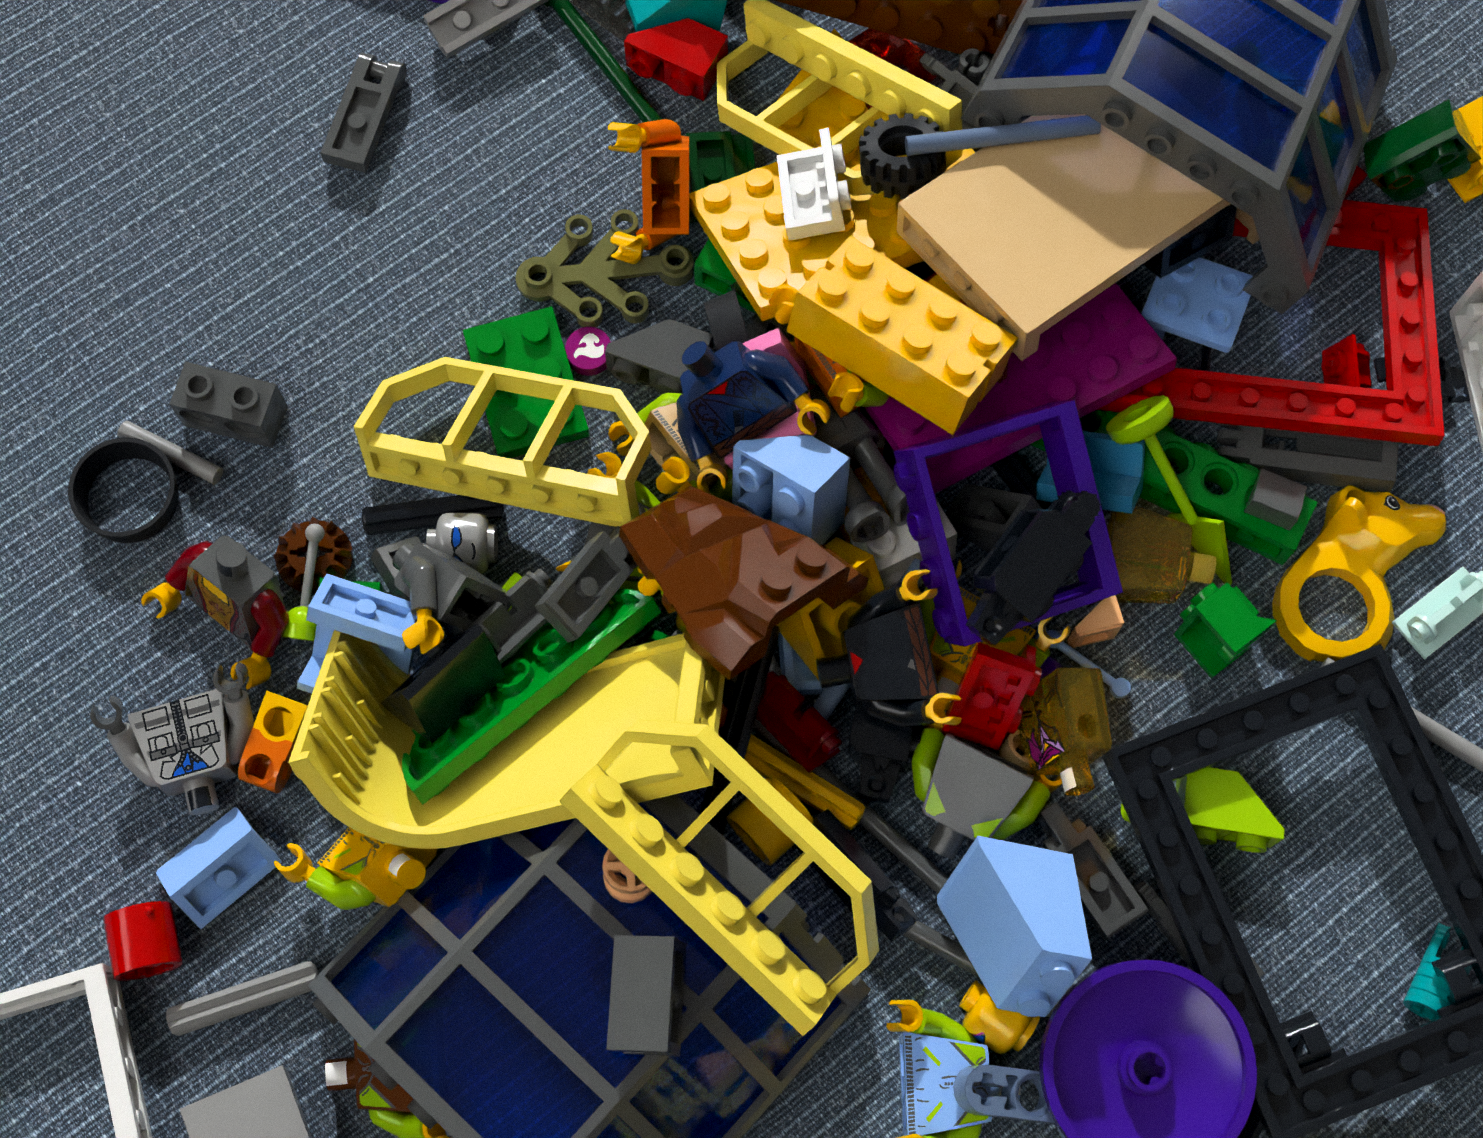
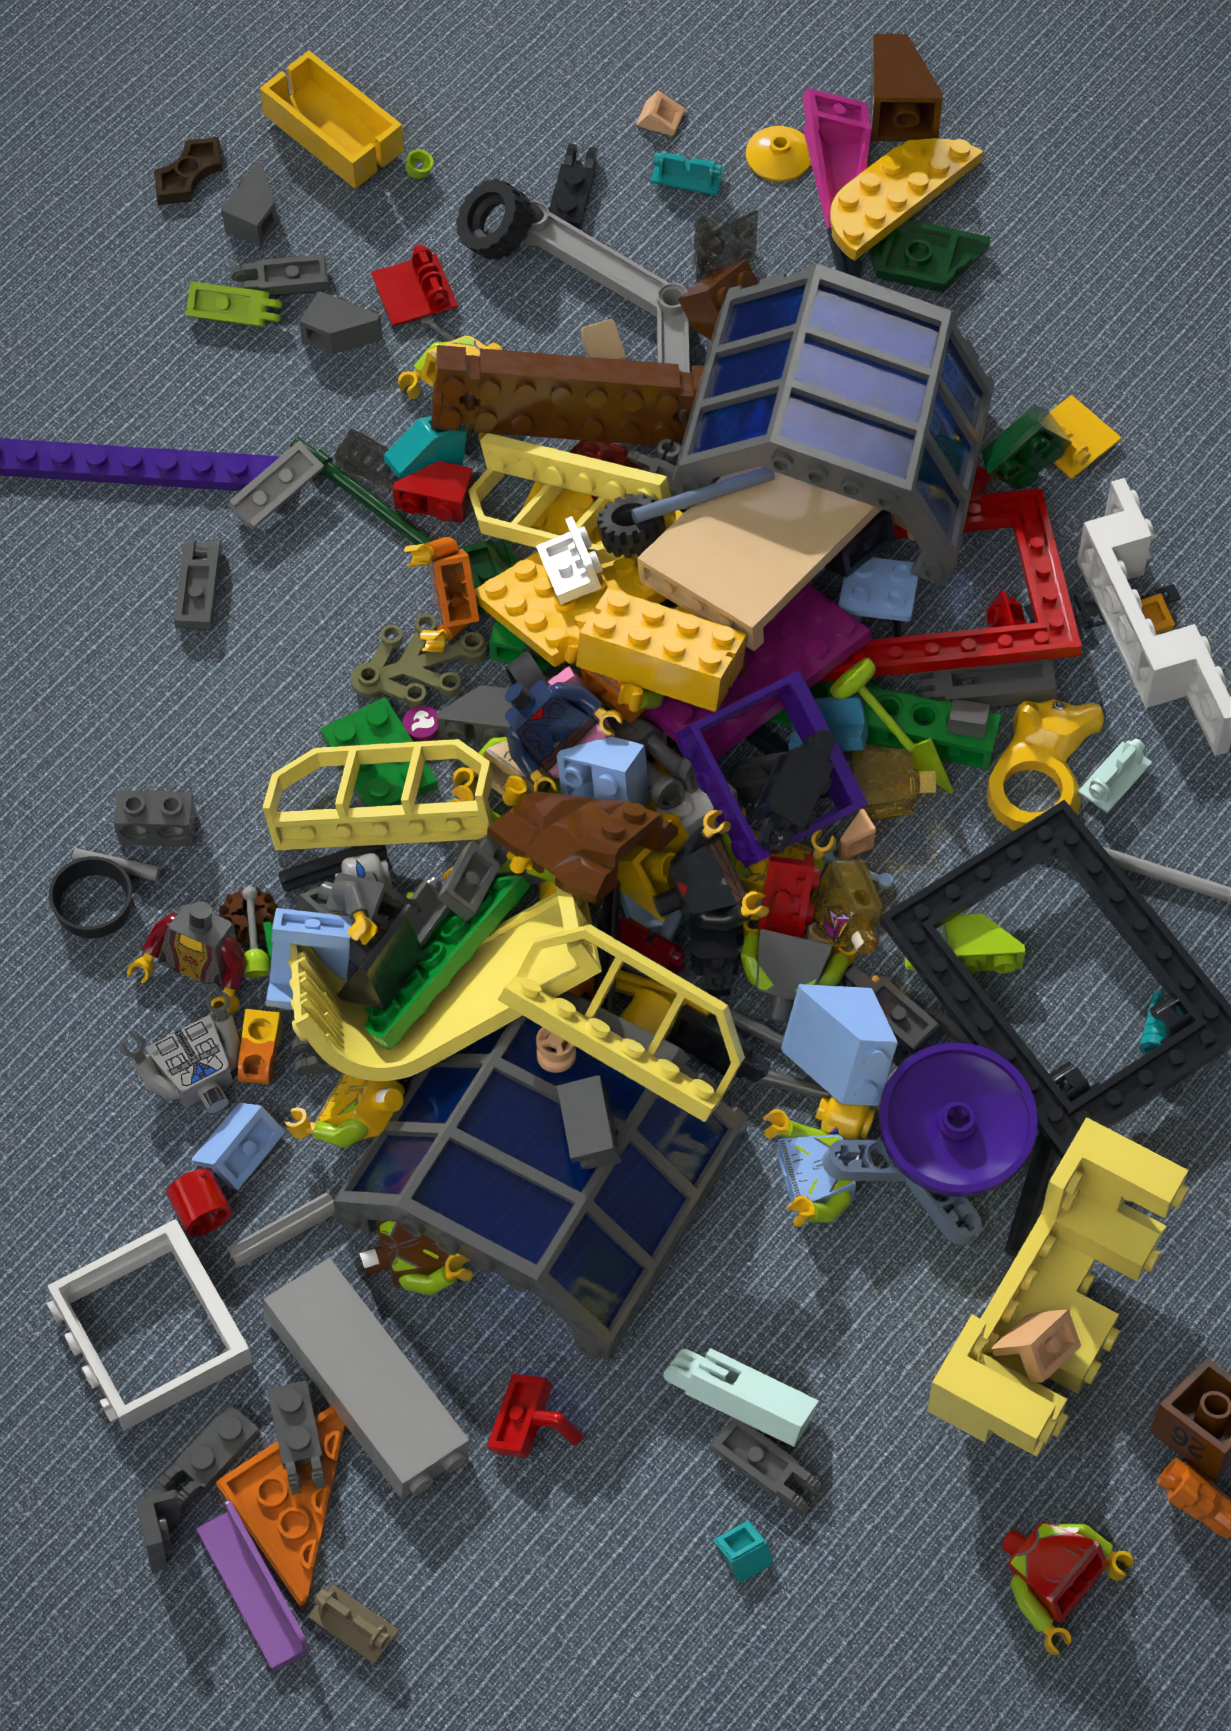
camera: 10 degrees left, 10 degrees down
(1220, 627) = (948, 818): green window -> none

